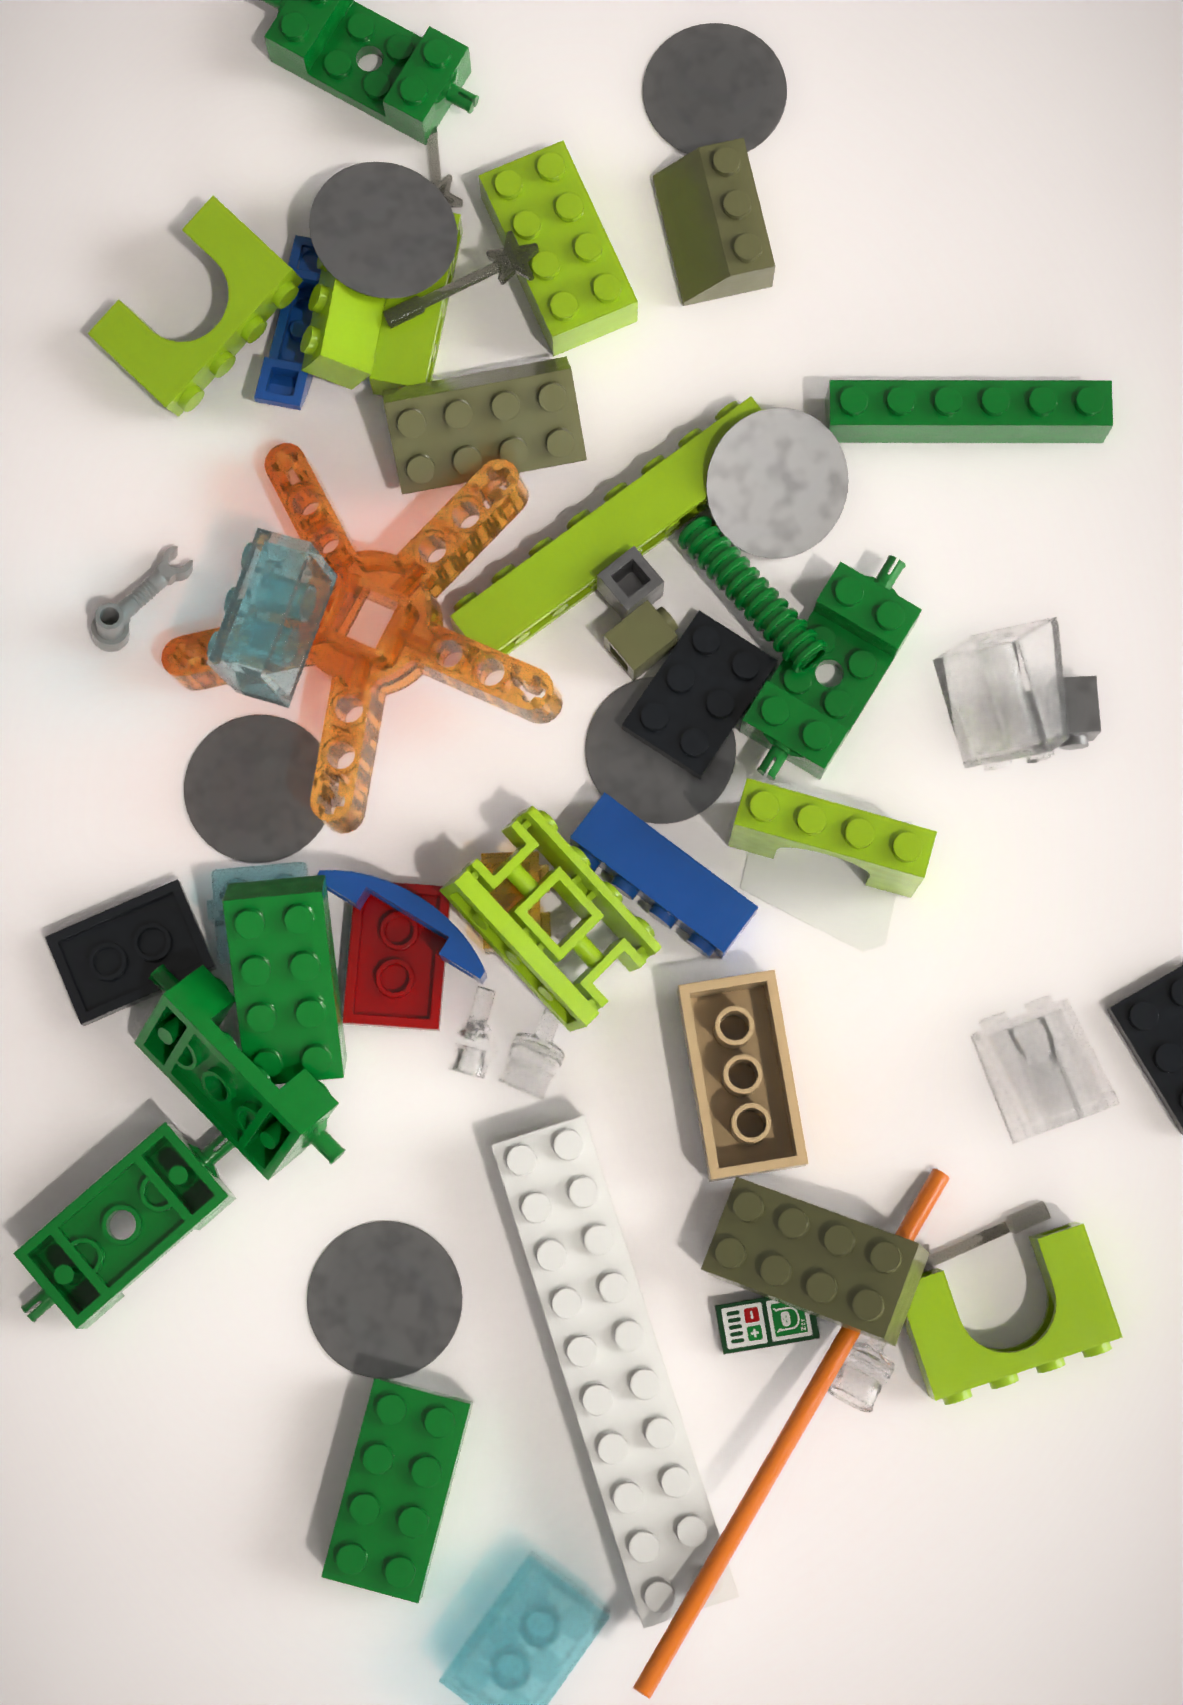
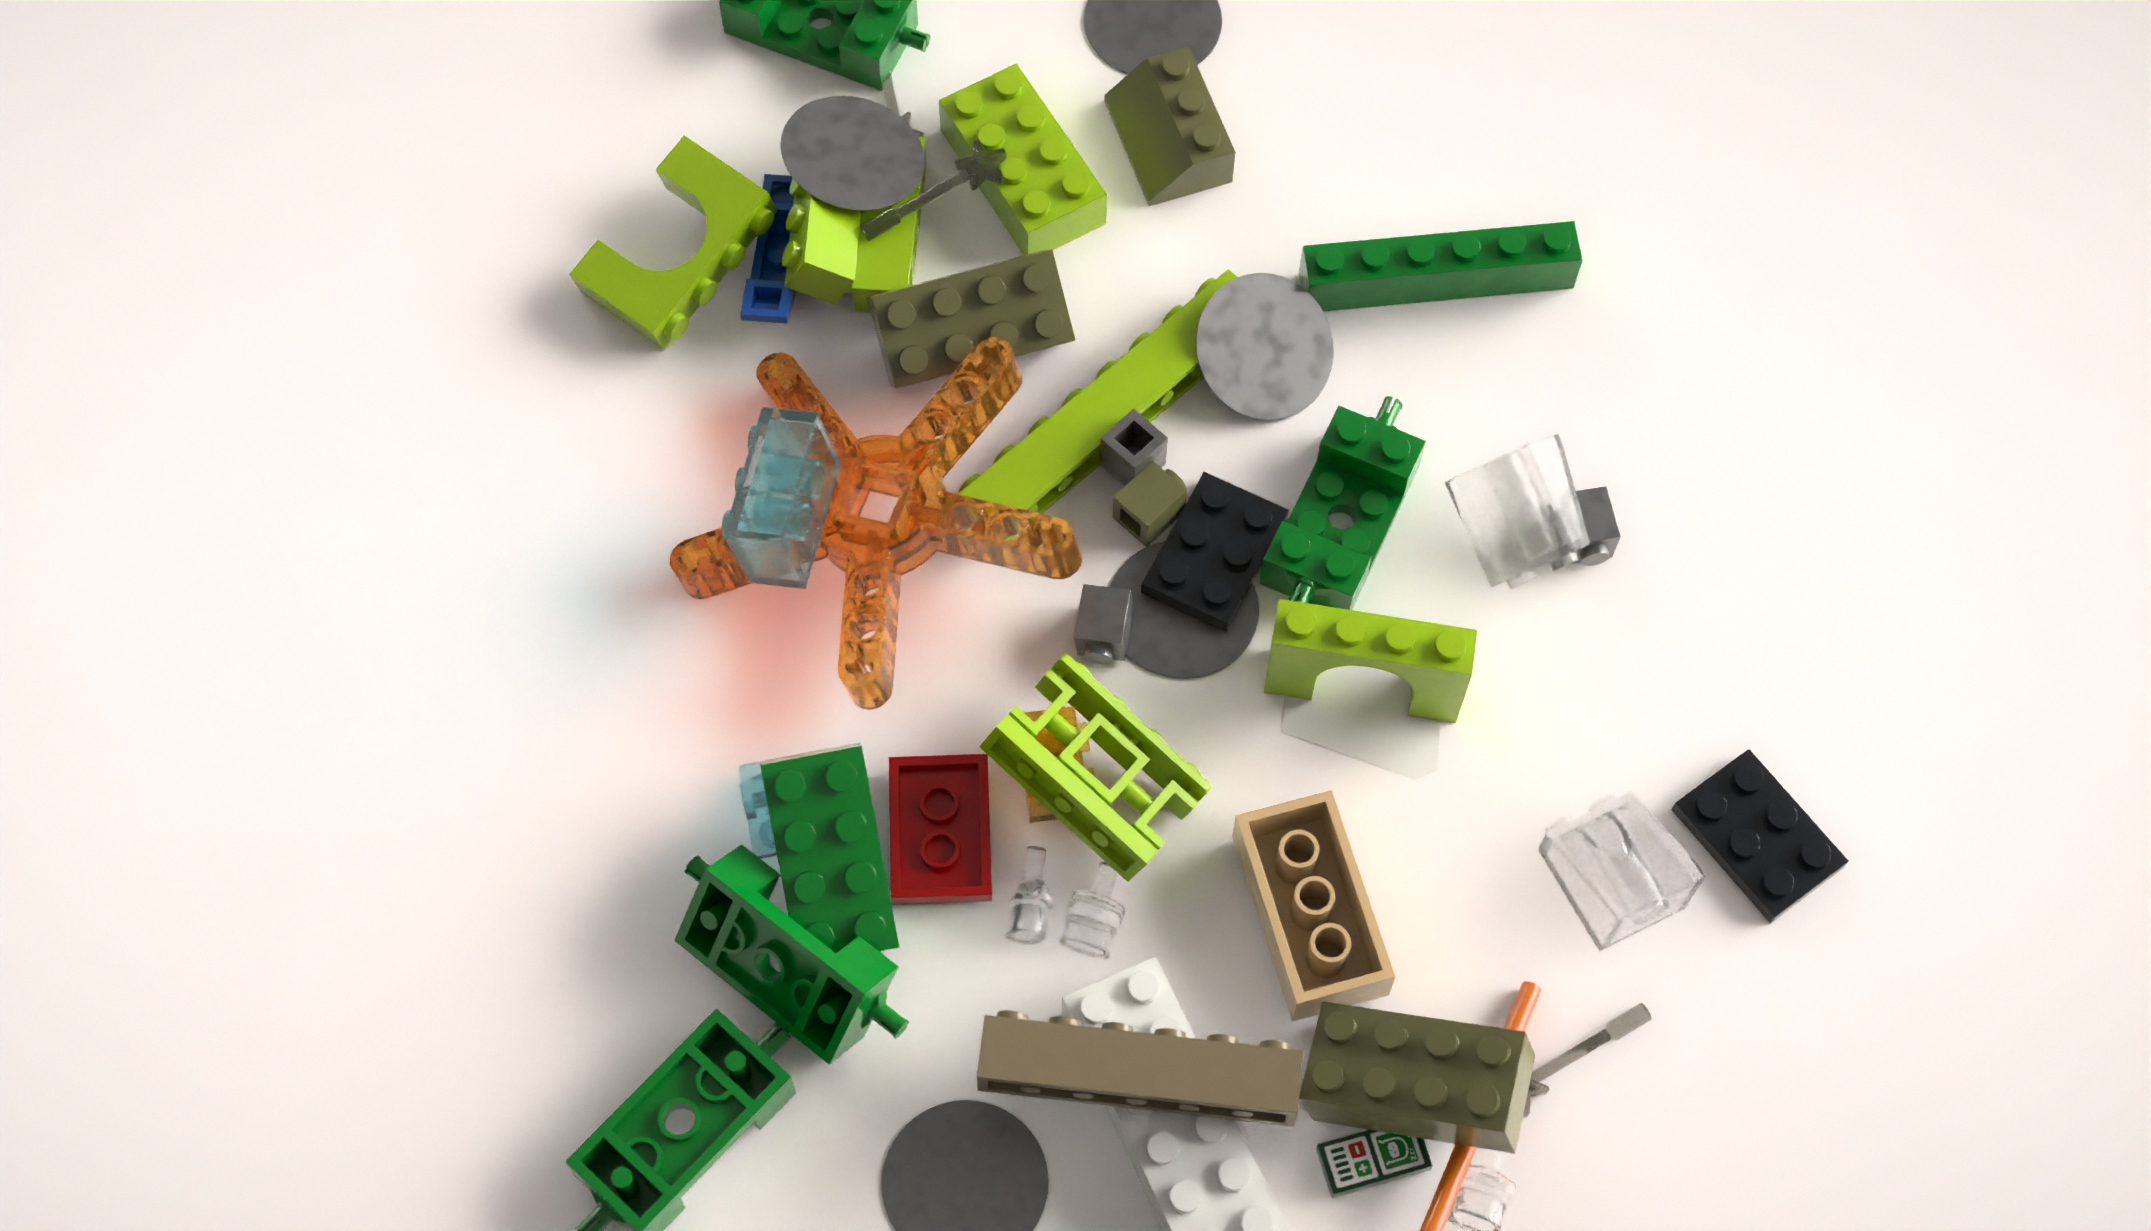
camera: 10 degrees left, 15 degrees down
(115, 952) = (643, 857): black plate -> none
(116, 636) = (614, 542): light grey brick -> none
(254, 788) = (775, 687): flat silver sticker -> none
(356, 889) = (1004, 811): blue slope -> none
(551, 1232) = (1140, 1068): none -> dark tan brick
(578, 764) = (1103, 623): none -> flat silver brick
(663, 877) = (1207, 723): blue brick -> none
(752, 594) = (1255, 448): green piece -> none
(1075, 1321) = (1696, 1114): lime arch -> none

